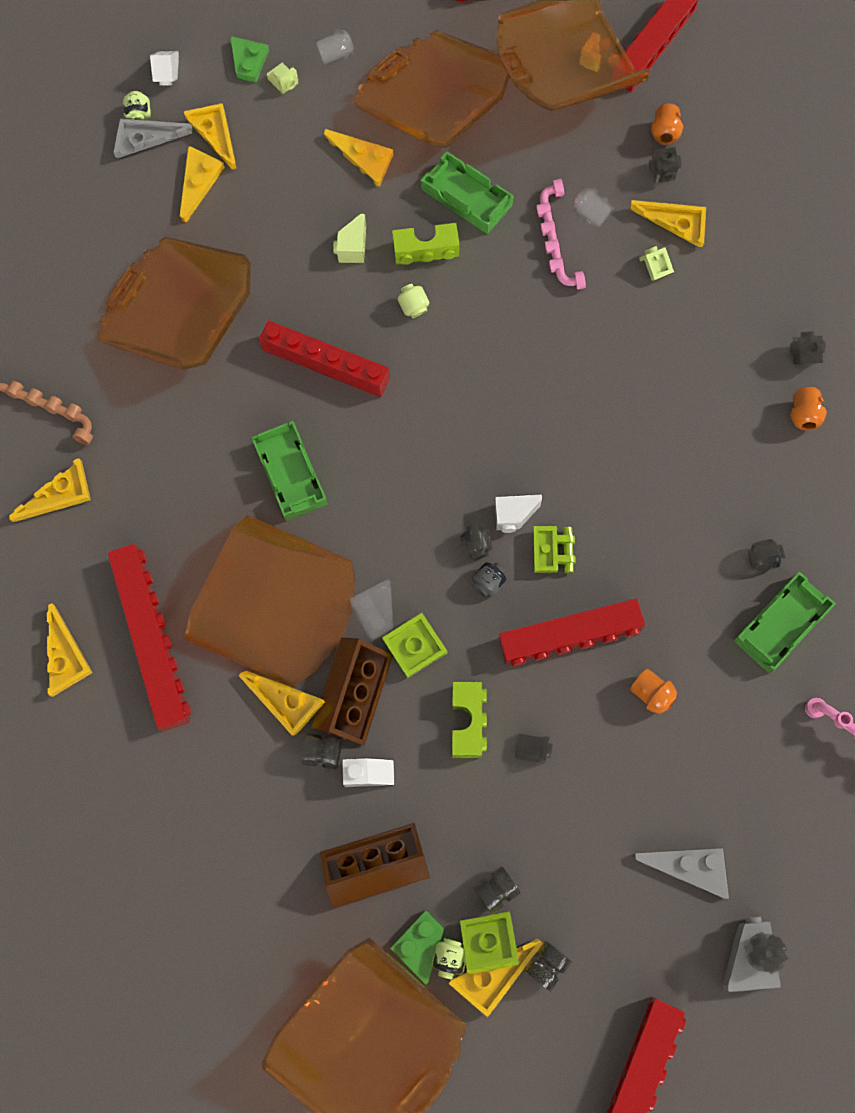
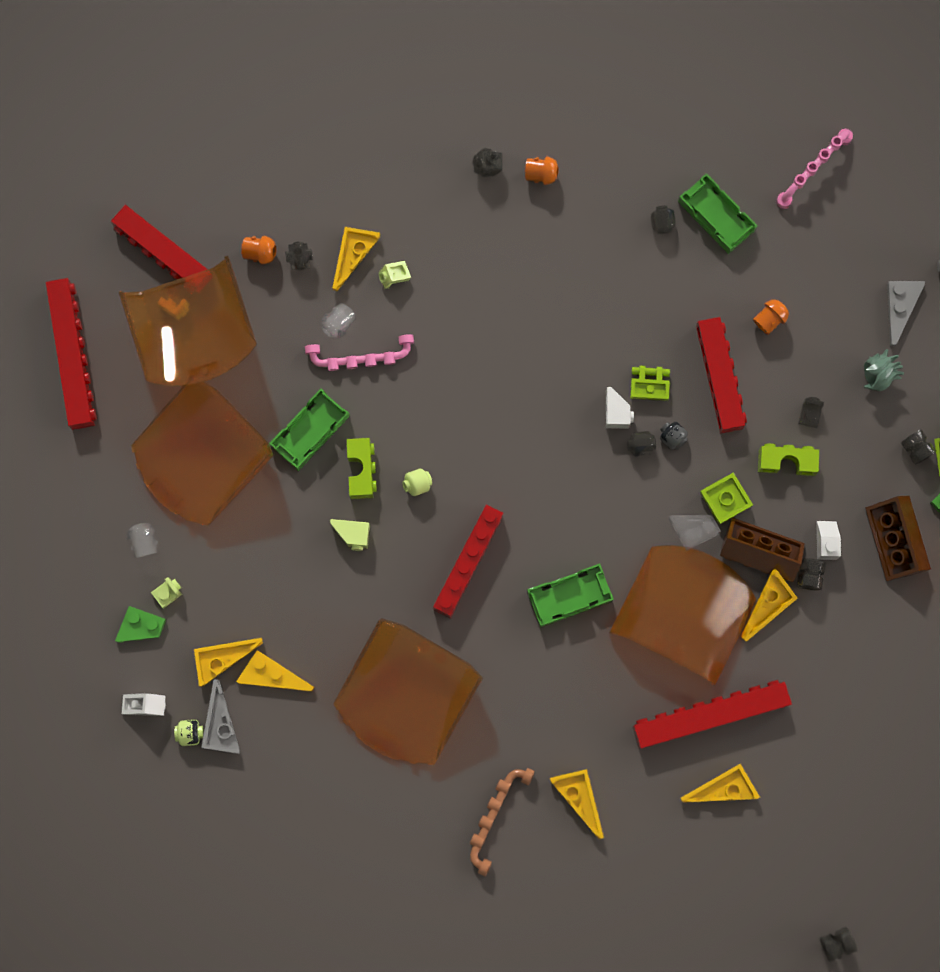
camera: 90 degrees left, 5 degrees up
(367, 156) = (262, 515): yellow wing -> none
(595, 837) = (881, 371): none -> sand green hair

